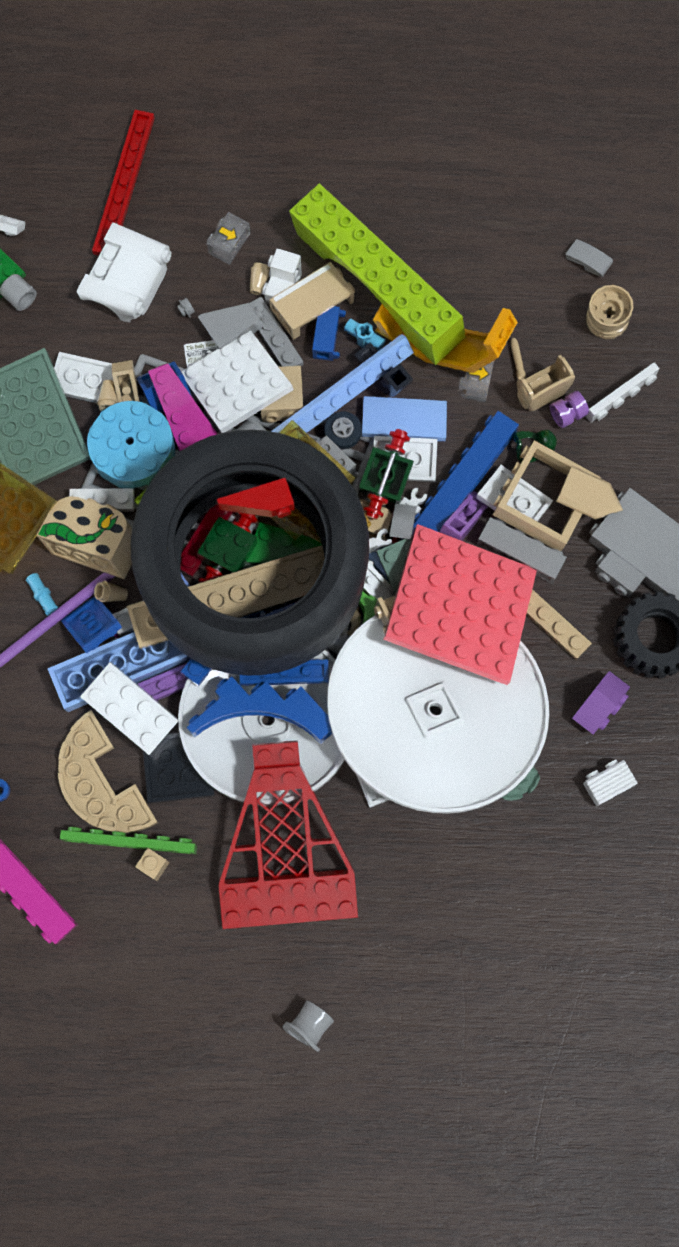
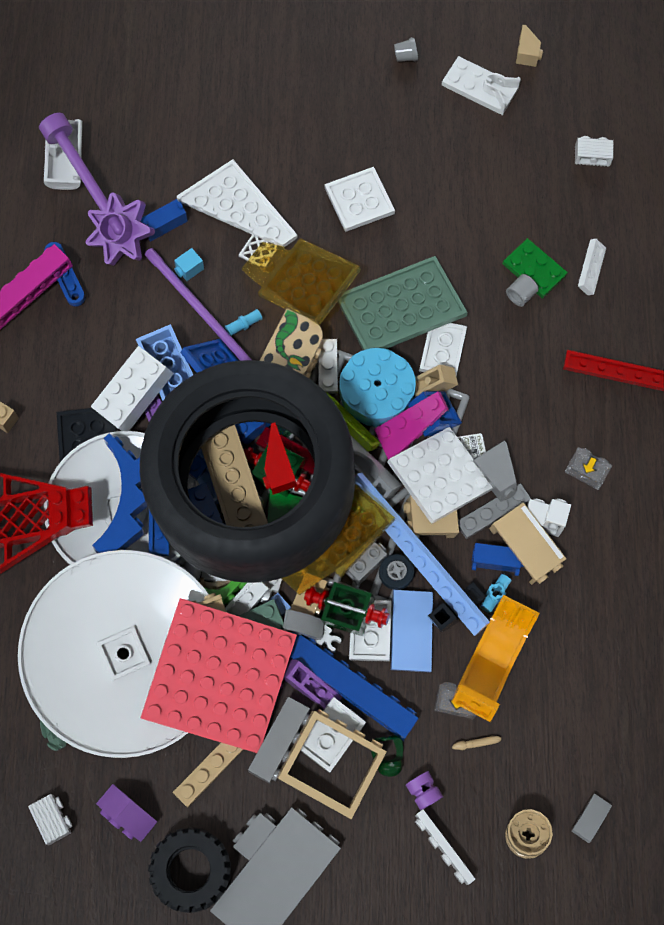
camera: 85 degrees right, 5 degrees down
(87, 786) = (71, 366): tan plate -> none
(107, 395) = (421, 365): tan cone -> none
(118, 839) = (23, 405): bright green plate -> none
(126, 273) = (544, 378): white piece -> none
(185, 307) = (516, 432): light grey plate -> none
(258, 278) = (548, 494): tan cone -> none
(375, 543) = (281, 593): white plate -> none
(416, 307) = (527, 619): lime arch -> none
(545, 385) = (446, 764): tan piece -> none
(588, 494) = (330, 804): tan tile -> none

